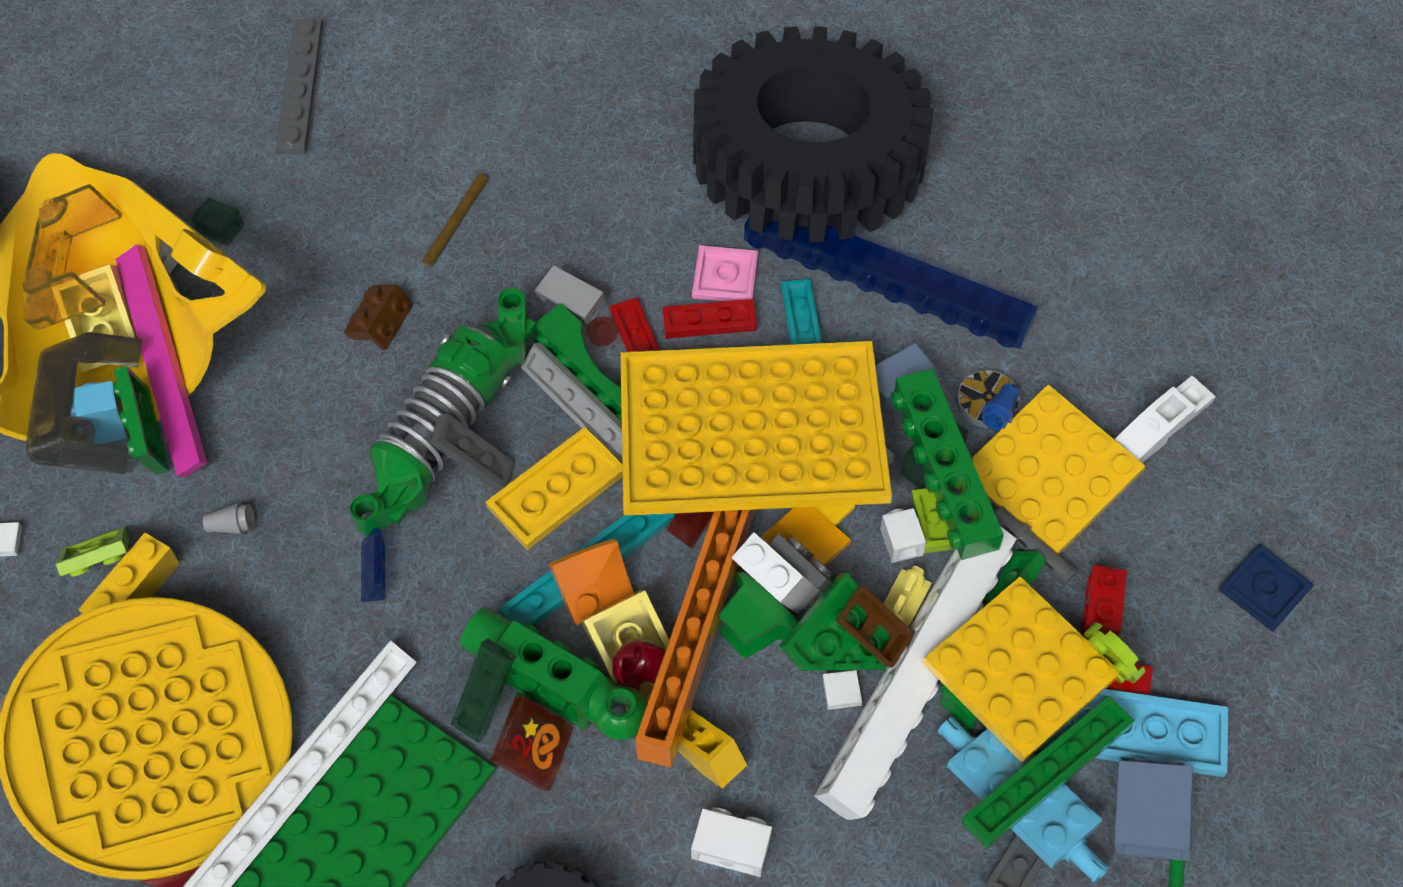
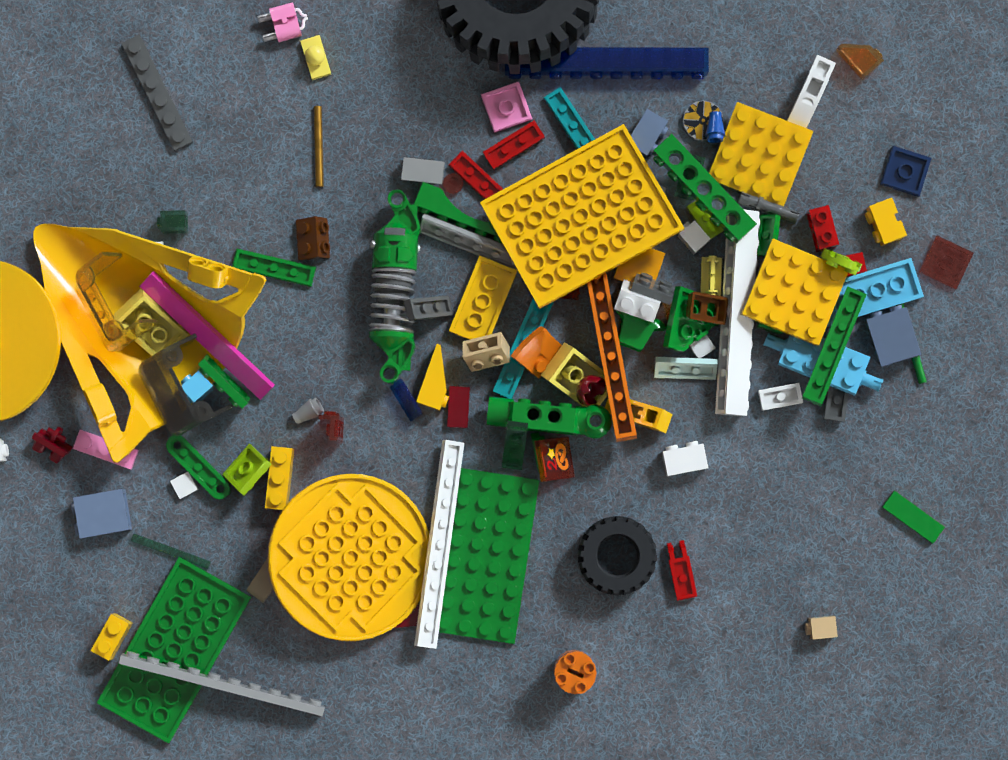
camera: 25 degrees left, 25 degrees up
(35, 523) = (198, 467): none -> green plate
(247, 549) = (336, 426): none -> clear red bracket
(307, 329) = (274, 267): none -> green tile
(420, 564) = (434, 385): none -> yellow slope
(439, 612) = (458, 407): none -> dark red tile
(500, 72) = (284, 22): none -> bright pink piece
(514, 125) = (315, 57): none -> light yellow tile
(518, 547) = (486, 352): none -> tan brick
(801, 708) = (685, 368): none -> light aqua plate
(929, 819) = (780, 396): none -> white plate
(1205, 643) = (884, 222): none -> yellow brick
(1255, 411) = (860, 58): none -> clear orange slope
(1283, 742) = (946, 262): none -> clear red tile

